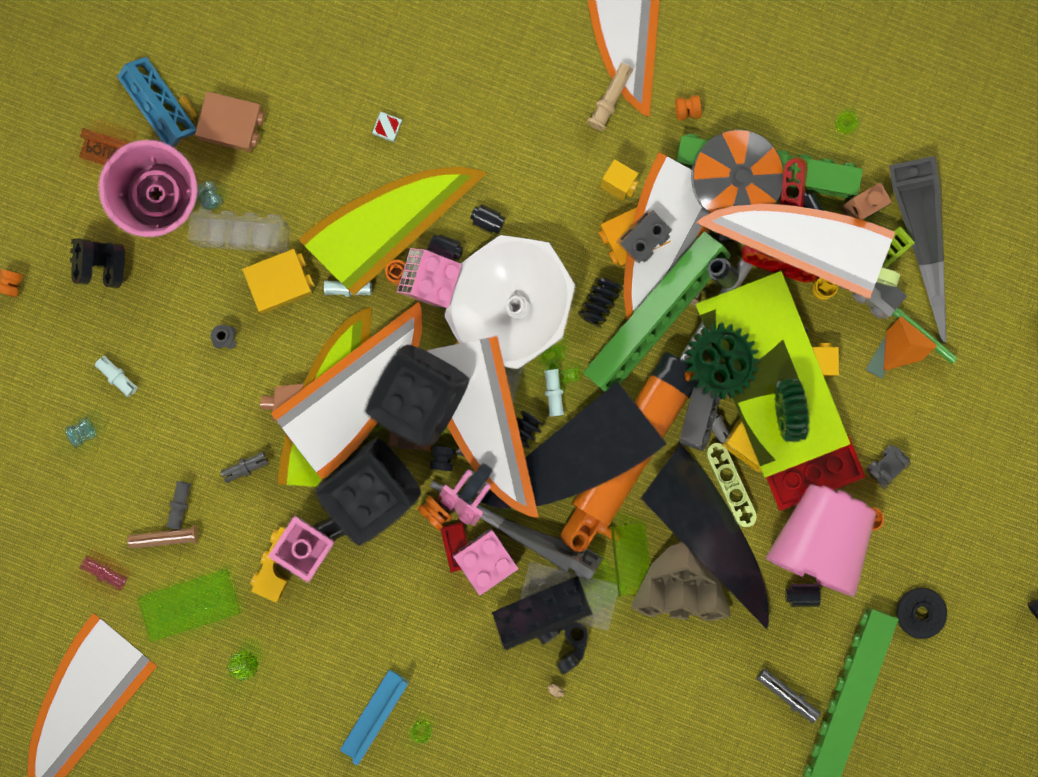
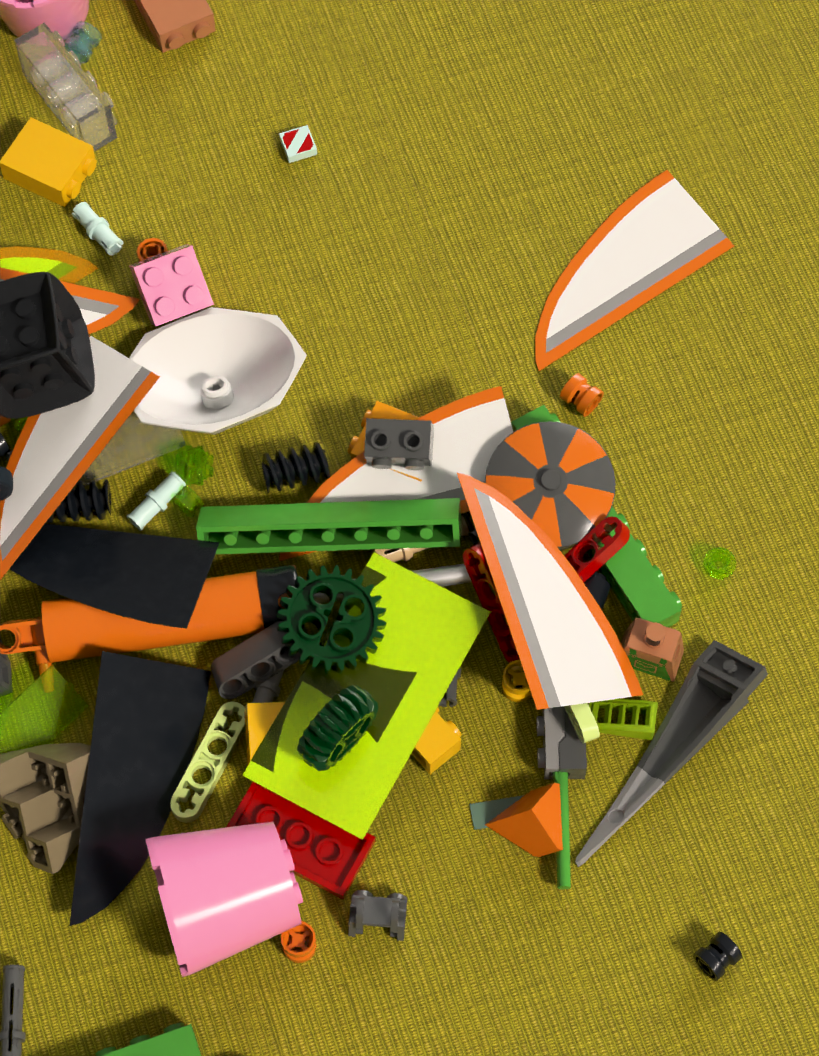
camera: 50 degrees right, 20 degrees down
(381, 224) = (183, 206): clear neon green sticker -> none
(446, 247) = (220, 283): black brick -> none
(487, 219) = (286, 298): black brick -> none
(606, 107) = (507, 317): tan pin -> none
(620, 180) = (439, 378): yellow brick -> none
(723, 273) = (430, 547): black brick -> none
(803, 595) = (145, 939): black brick -> none

